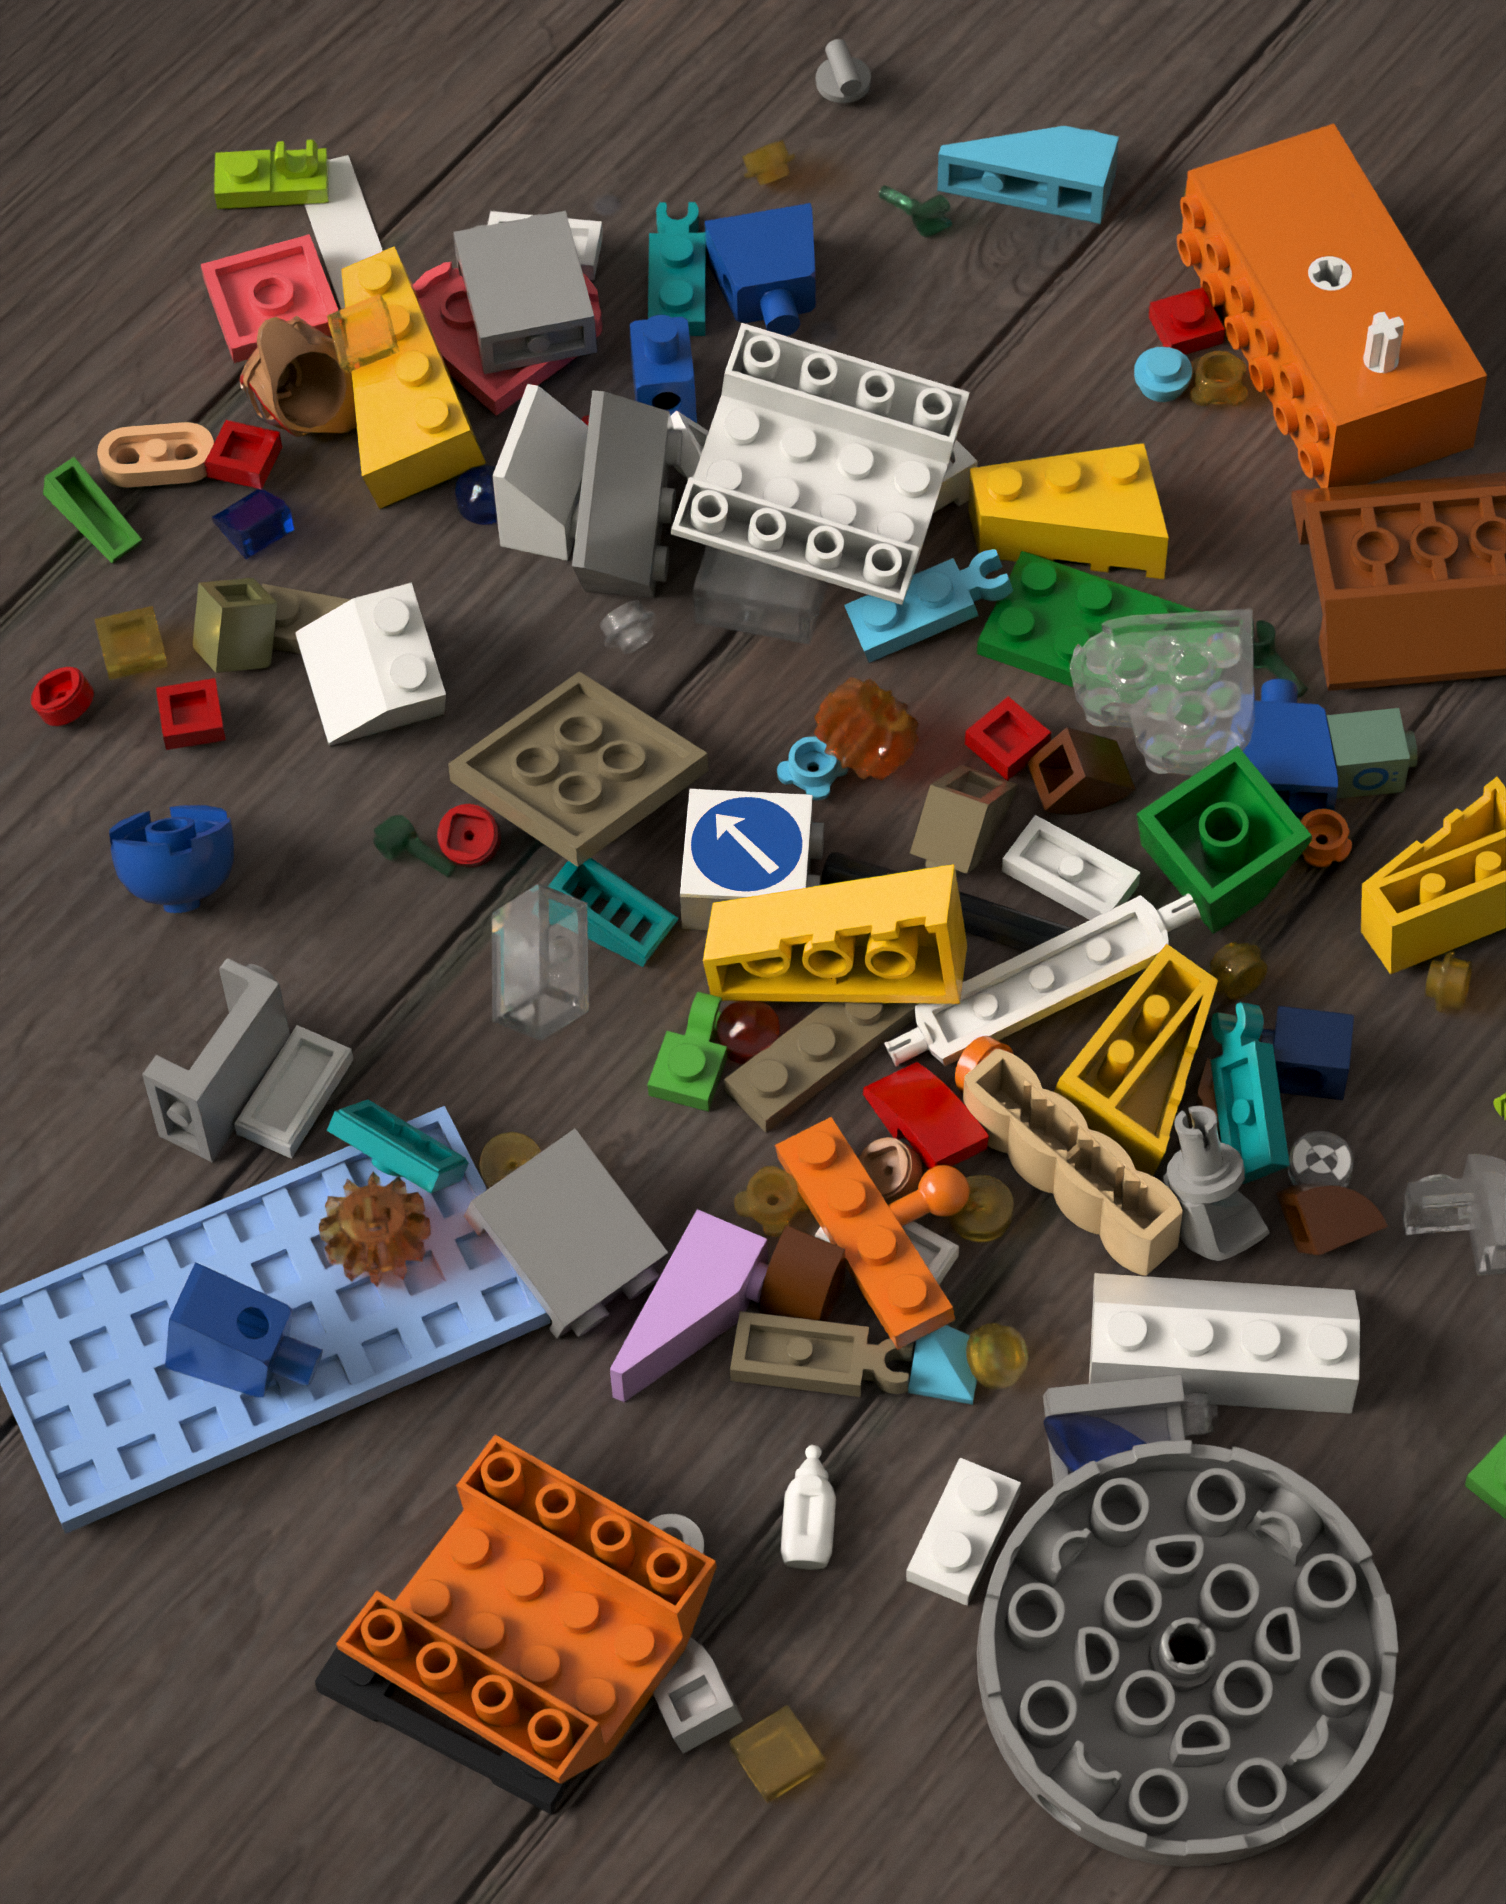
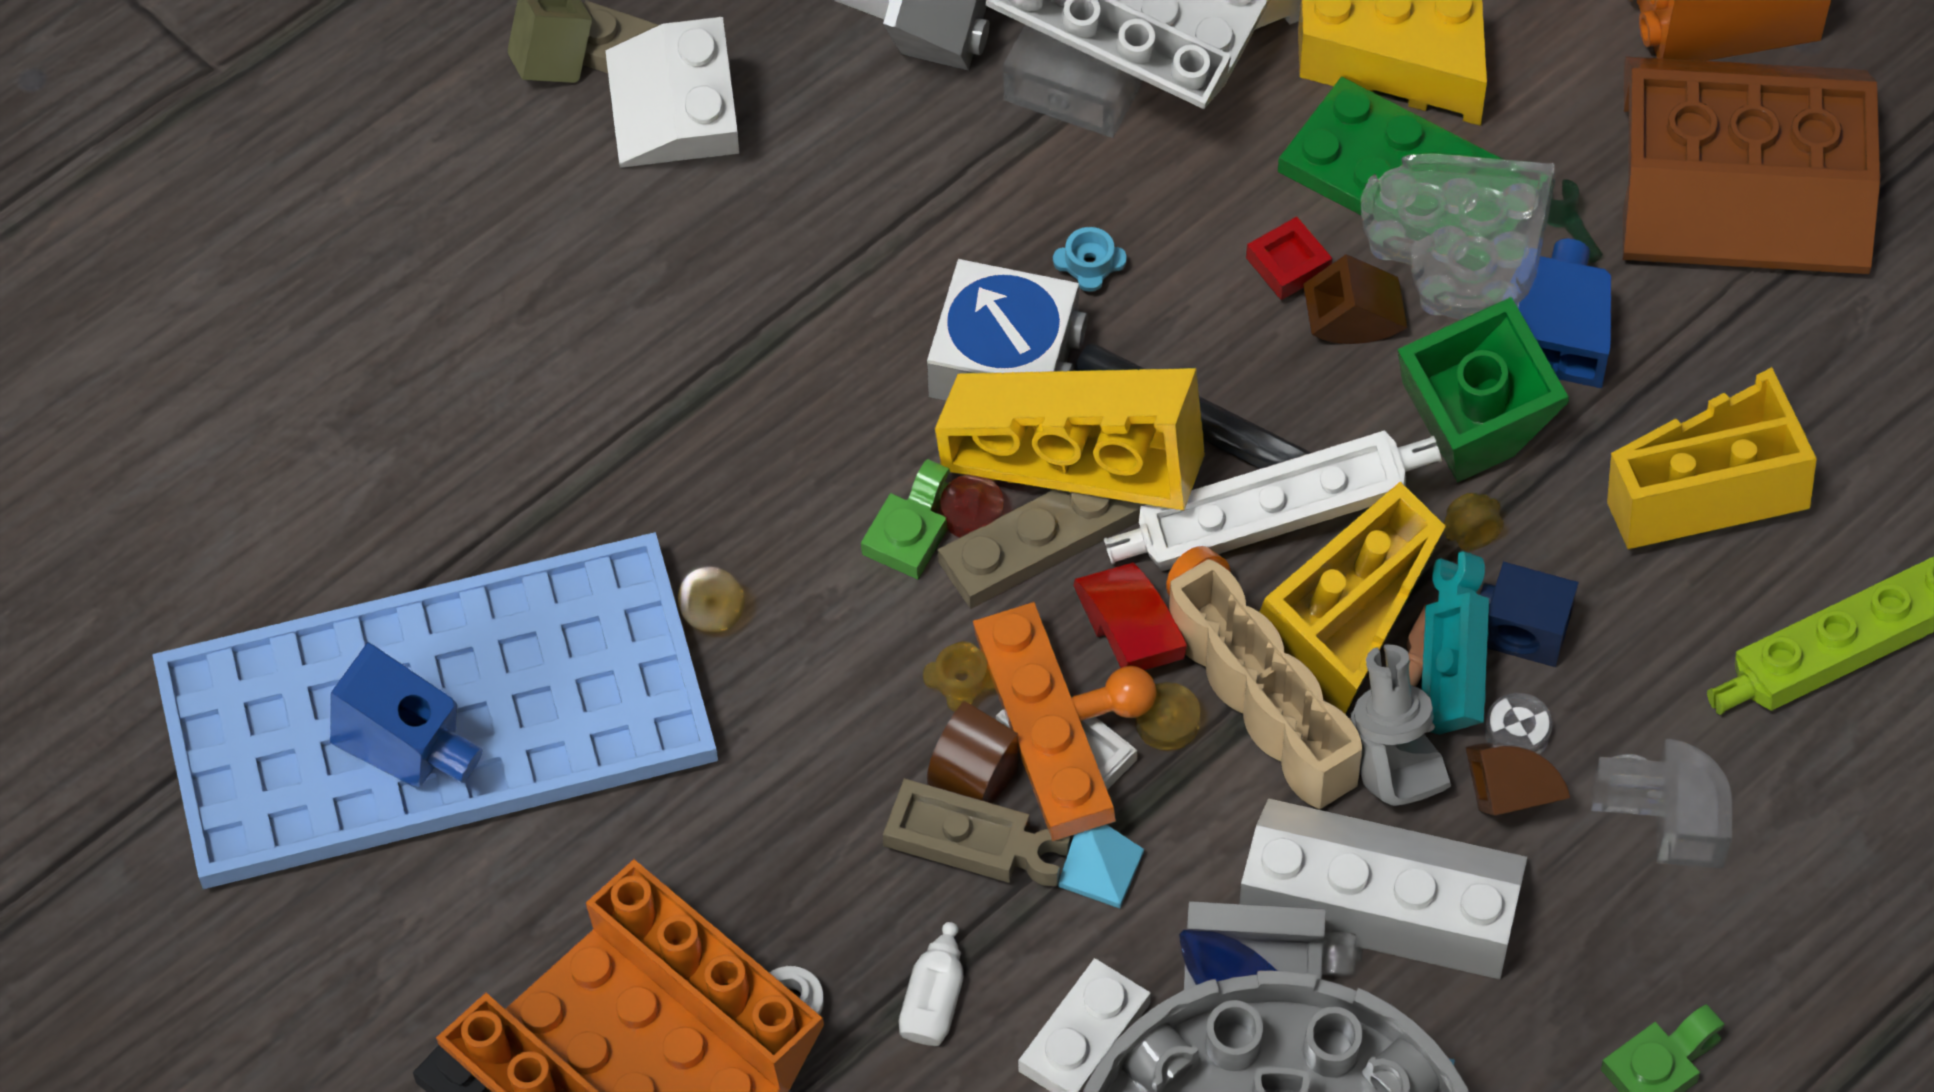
camera: 10 degrees right, 0 degrees up
(62, 696) = (369, 80): red tile -> none
(131, 642) = (446, 38): clear yellow plate -> none
(175, 857) = (442, 250): blue cylinder -> none
(190, 714) = (489, 115): red plate -> none
(203, 1103) = (451, 465): light grey panel -> none
(294, 1091) = (514, 496): white tile -> none
(369, 1207) = (583, 637): clear orange gear -> none
(398, 835) = (668, 263): clear green hand -> none
(398, 1146) = (598, 563): teal plate -> none
(469, 835) = (736, 273): red tile -> none
(540, 962) = (777, 406): clear brick -> none
(569, 1234) = (749, 676): light grey panel -> none
(578, 768) = (855, 223): dark tan plate -> none
(620, 894) = (855, 338): teal slope -> none
(628, 627) = (934, 94): clear plate -> none
(693, 1302) = (858, 763): lavender slope -> none
(866, 728) = (1147, 226): clear orange gear -> none
(892, 1167) = (1084, 661): medium nougat tile -> none
(932, 604) = (1235, 116): medium azure plate -> none
(961, 818) = (1226, 329): dark tan slope -> none
(996, 1355) = (1151, 863): clear yellow plate -> none
(1069, 870) = (1323, 395): white plate -> none
(1329, 826) = (1590, 391): orange plate -> none
(1371, 752) = (1650, 326): sand green brick -> none
(1449, 982) = (1685, 566): clear yellow plate -> none

